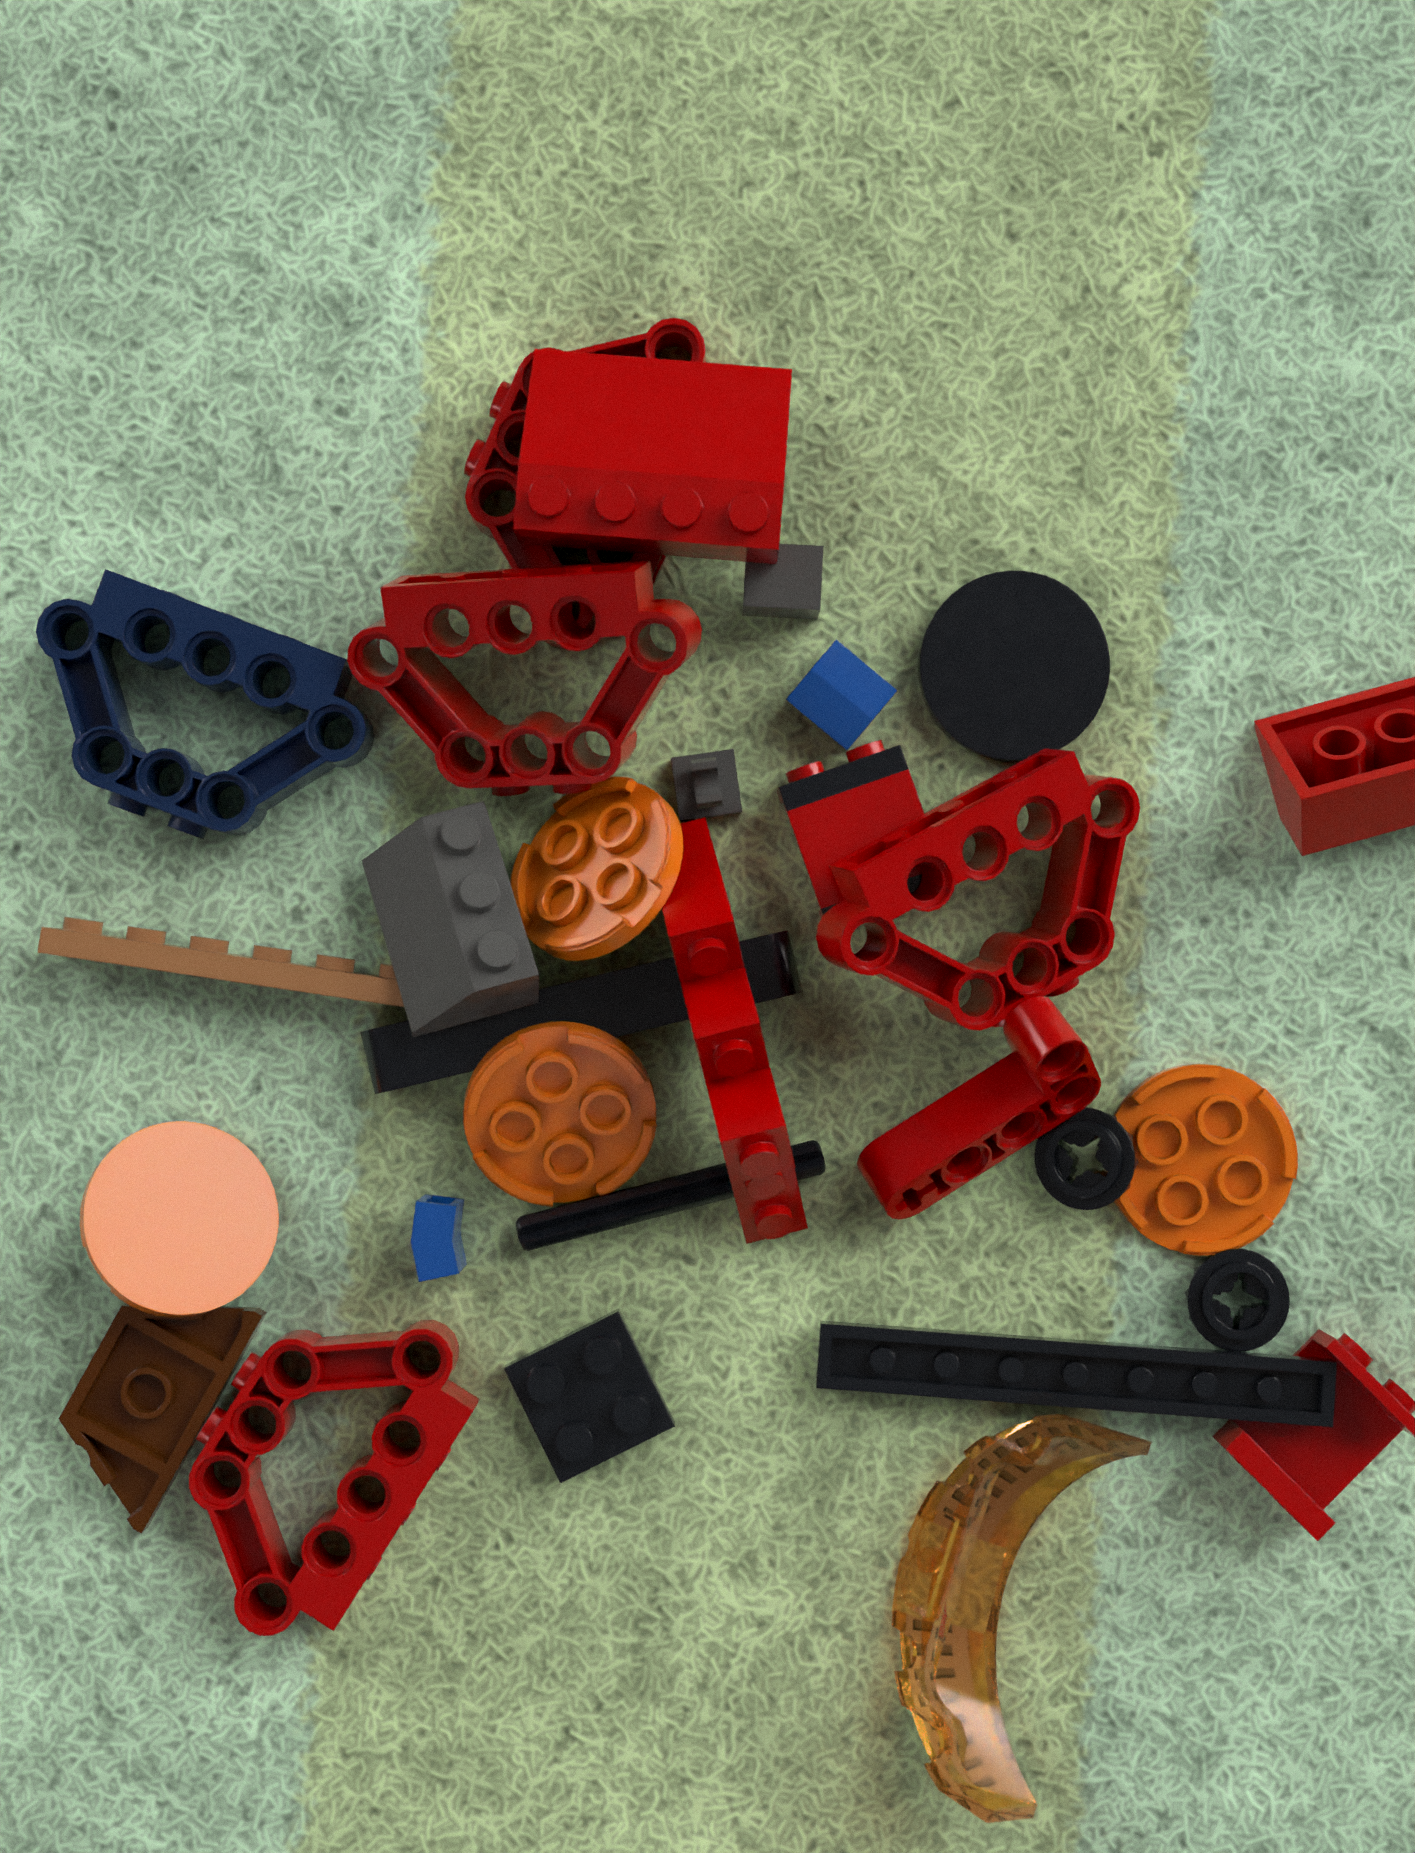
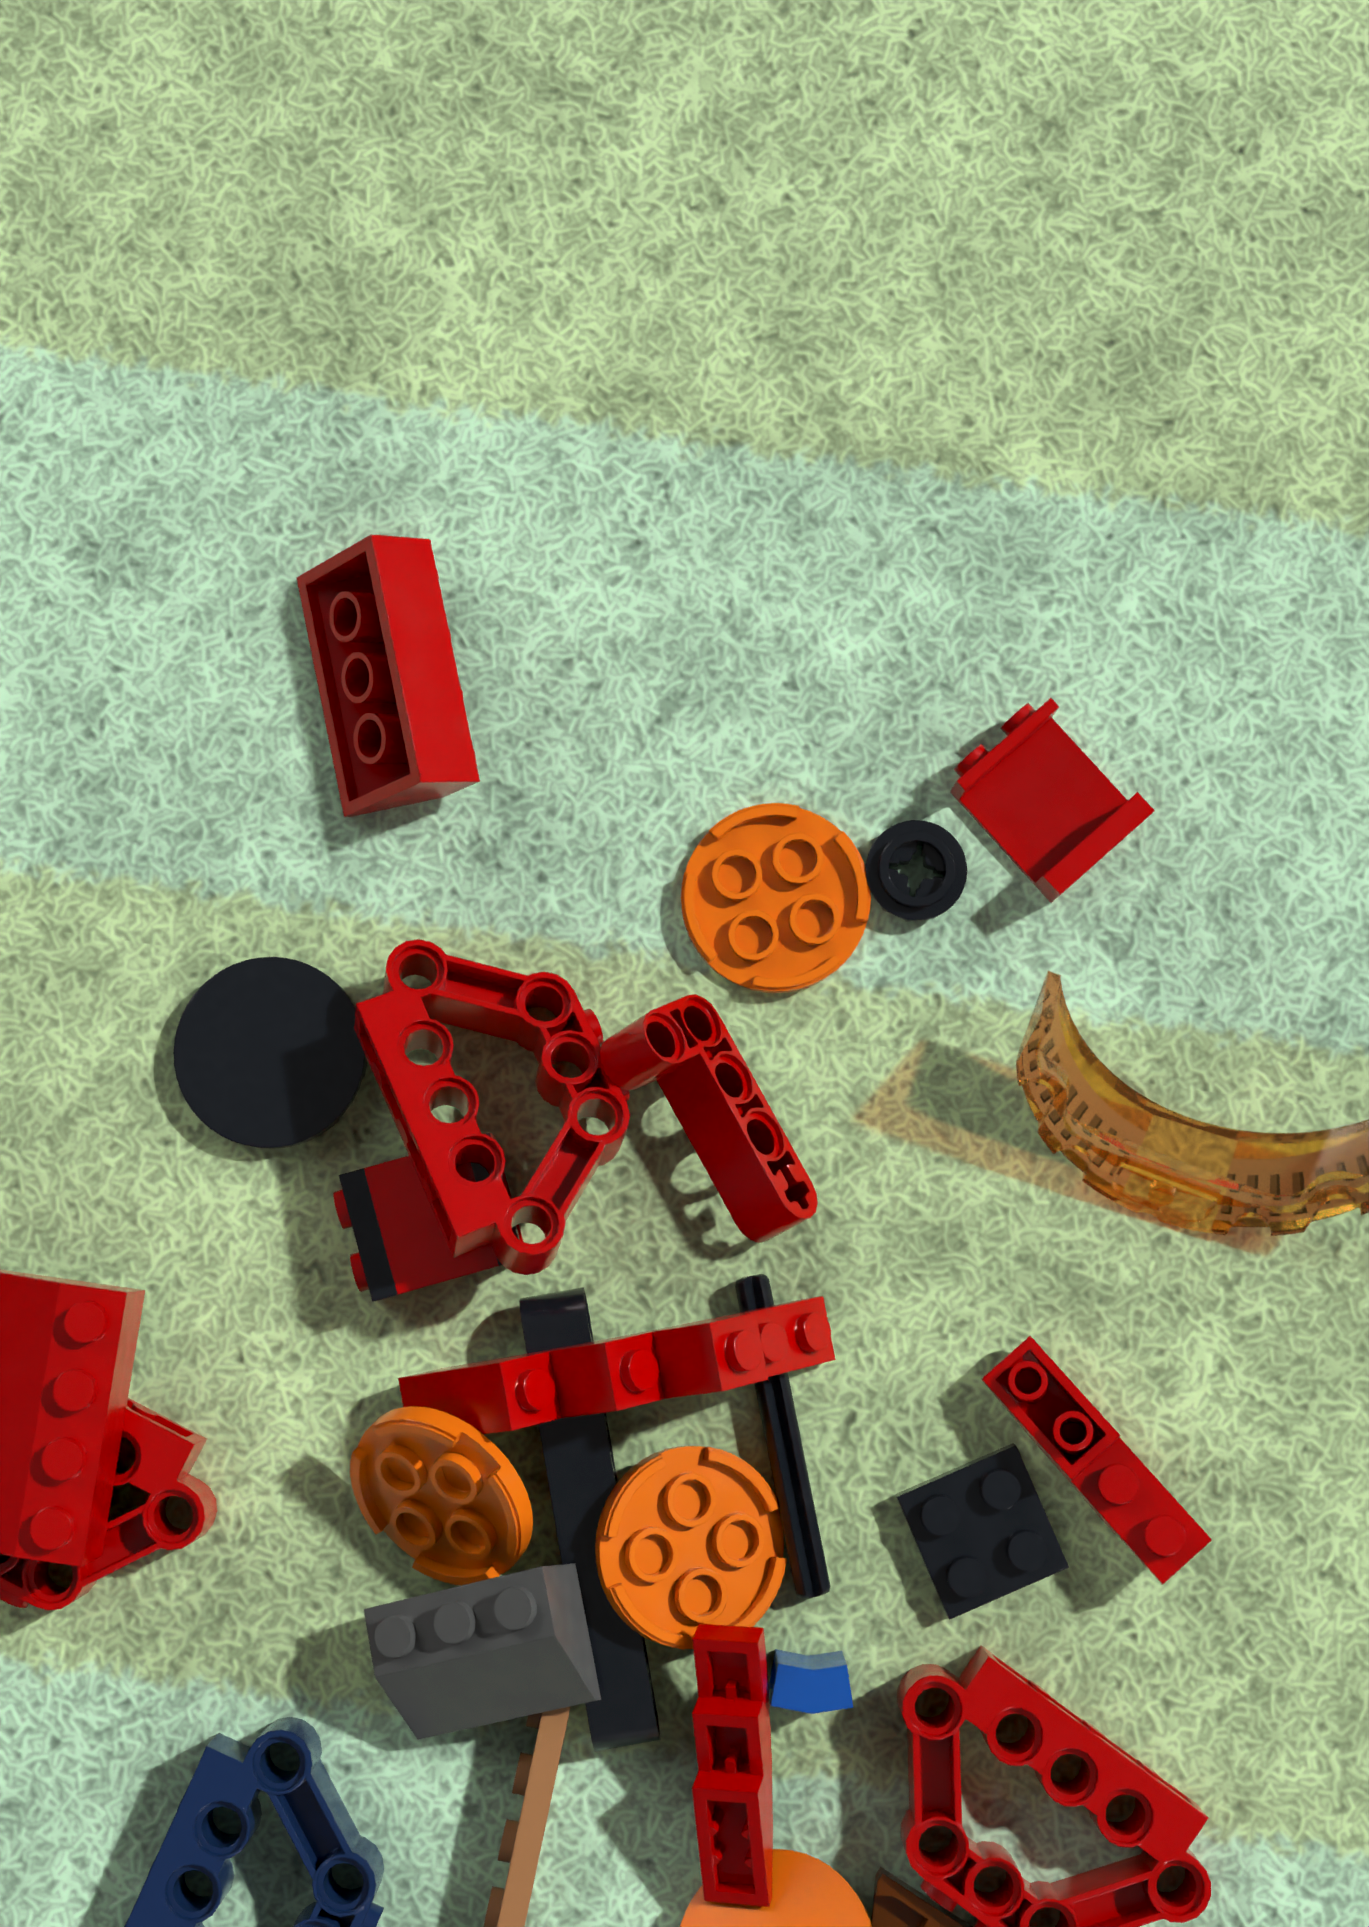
camera: 85 degrees left, 5 degrees down
(358, 1167) = (733, 1765): none -> red slope
(445, 711) = (271, 1643): red brick -> none
(666, 1505) = (1096, 1460): none -> red slope
(706, 785) = (367, 1372): dark grey tile -> none
(787, 587) = (171, 1281): dark grey panel -> none
(841, 695) = (285, 1229): blue piece -> none
(1076, 1373) = (980, 1039): black plate -> none
(1092, 1188) = (771, 1039): black gear -> none

